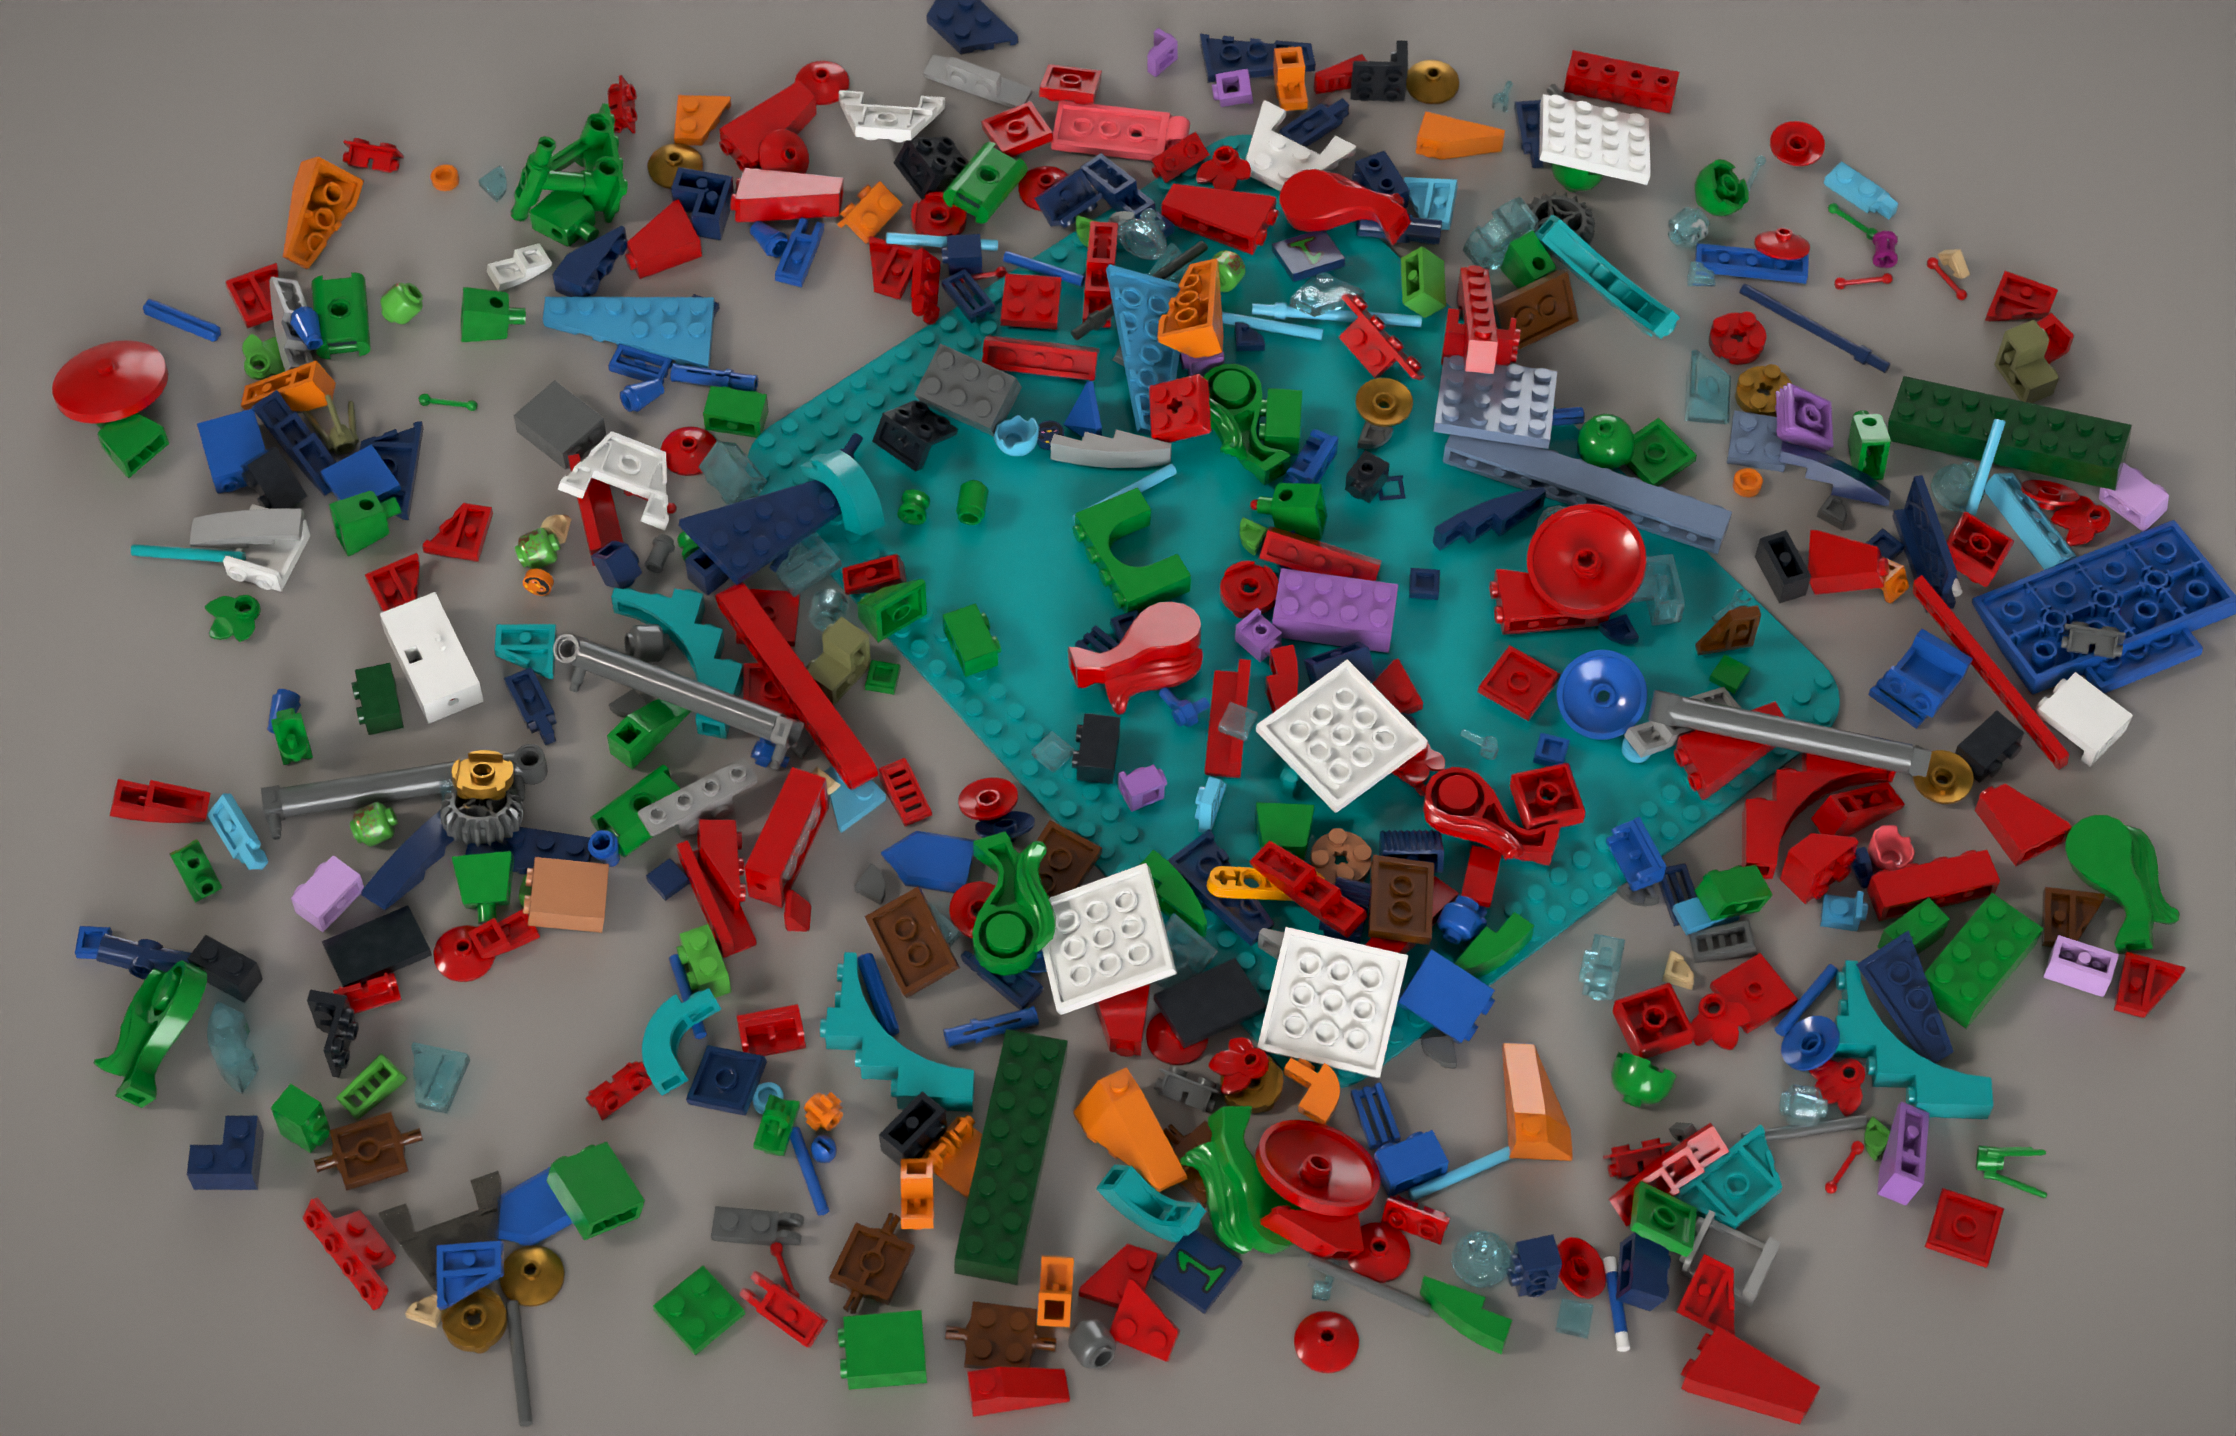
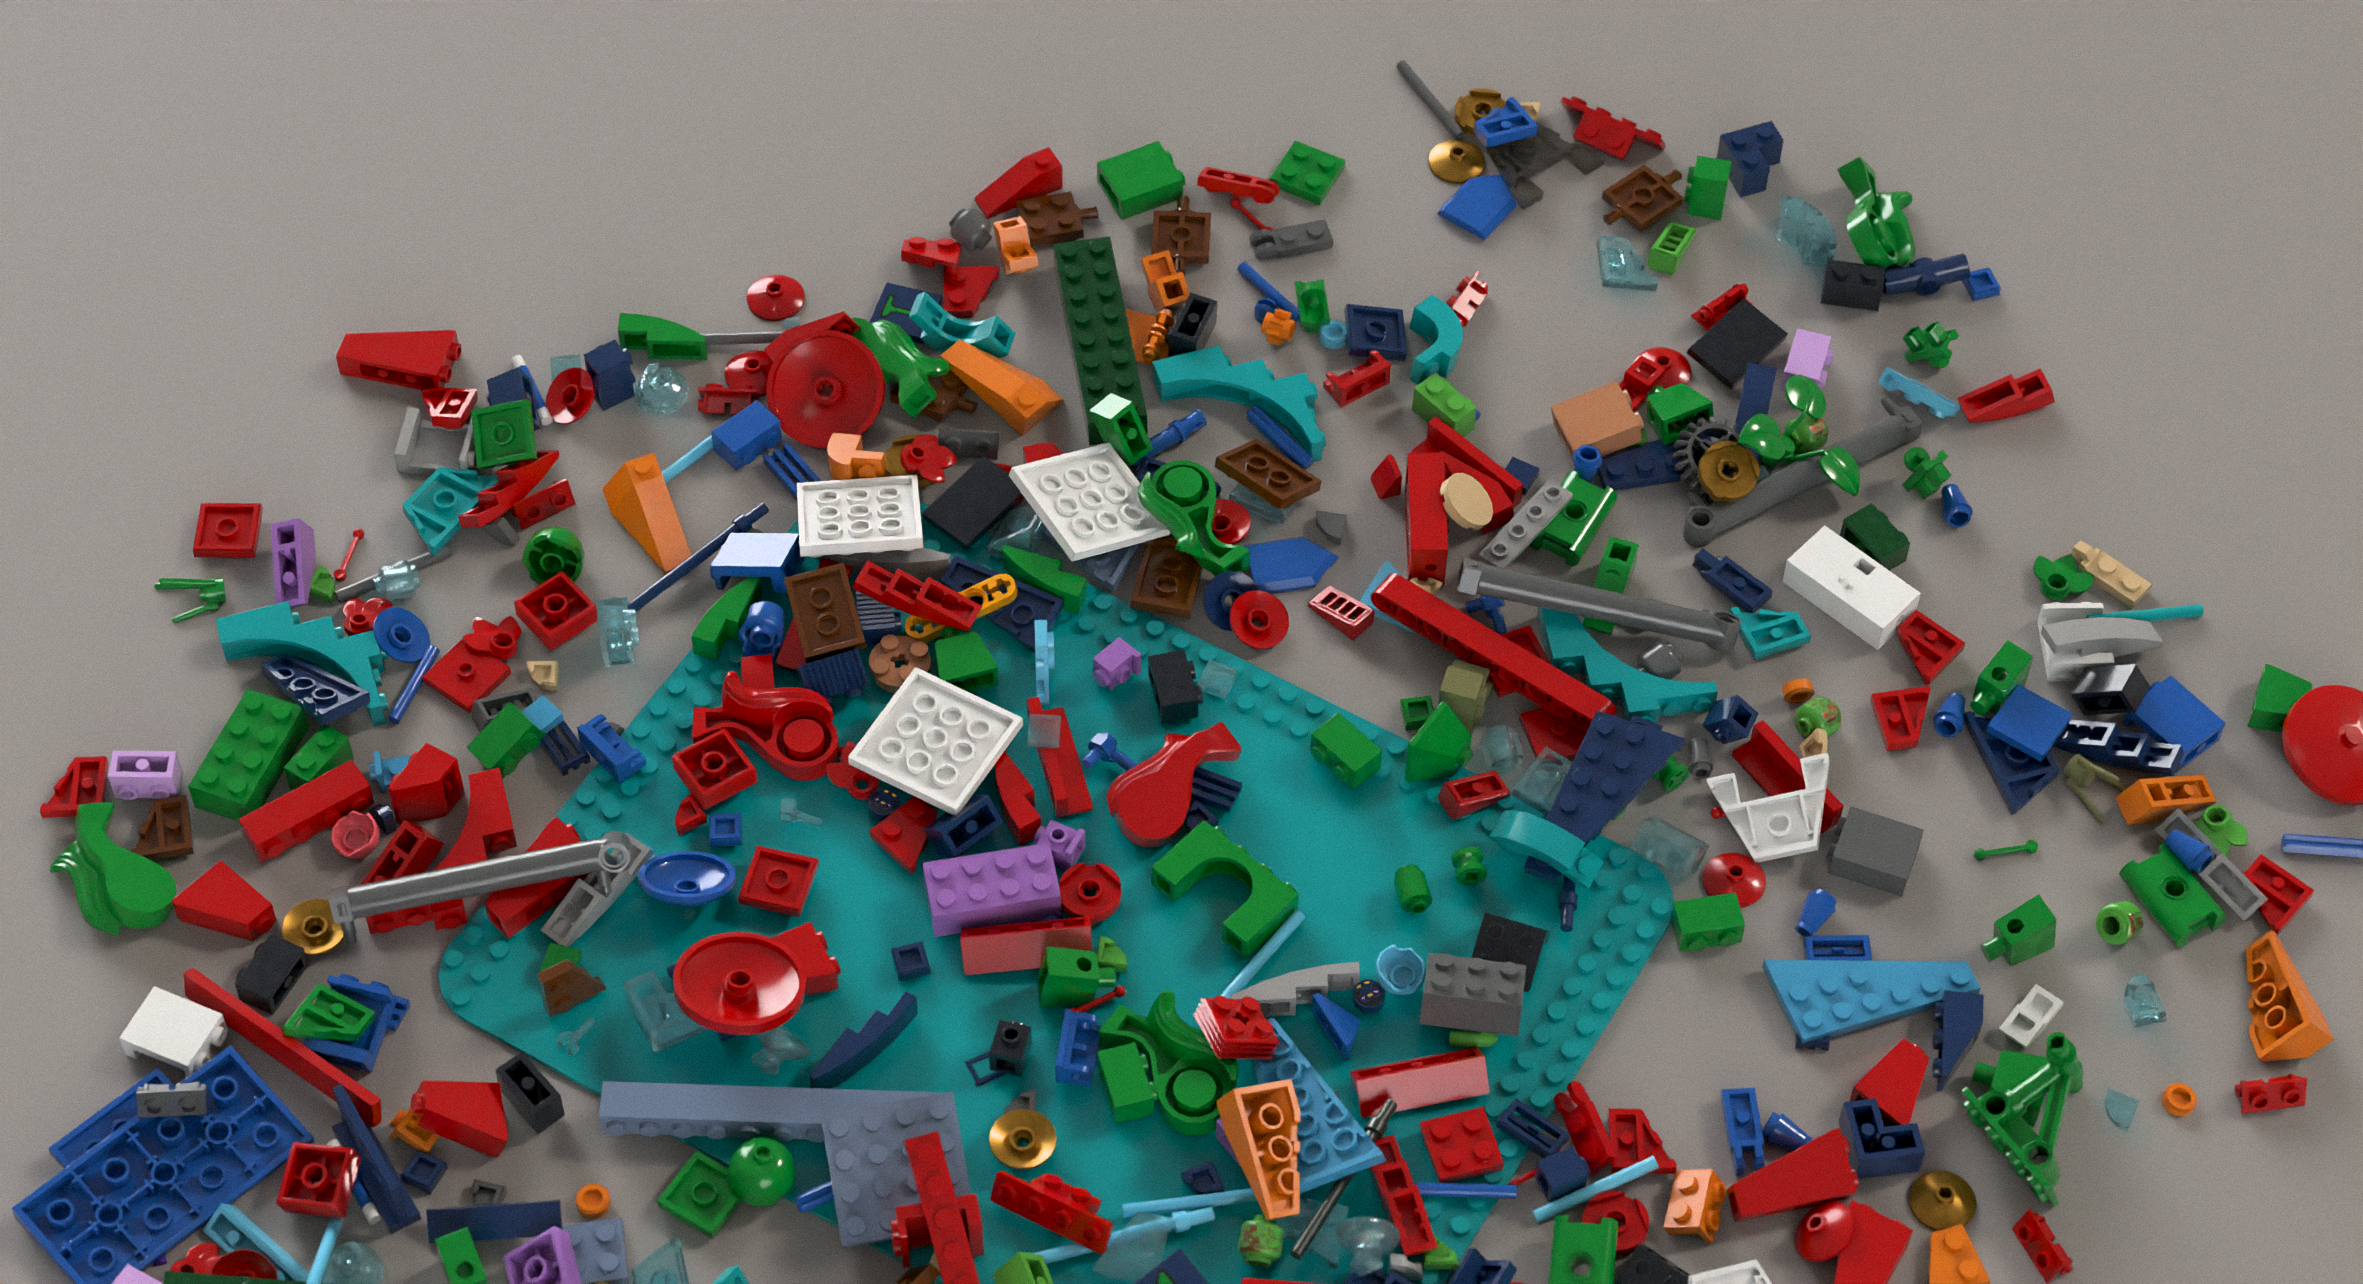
camera: 160 degrees right, 5 degrees down
(187, 605) = (2111, 574): none -> tan hinge
(334, 1016) = (1726, 263): black bracket -> none
(366, 823) = (1763, 436): none -> green plant
(419, 519) = (1950, 716): none -> blue cone
(425, 243) = (2143, 1001): none -> clear light blue plate
(595, 1190) = (1437, 213): green brick -> none
(713, 377) = (1740, 957): blue pin -> none
(746, 817) = (1466, 501): none -> tan tile
(1042, 1010) = (1121, 428): none -> green brick
(1448, 1054) = (740, 524): none -> dark blue bar
(1583, 773) = (689, 815): none -> red tile
(1945, 671) = (329, 1017): none -> green wing

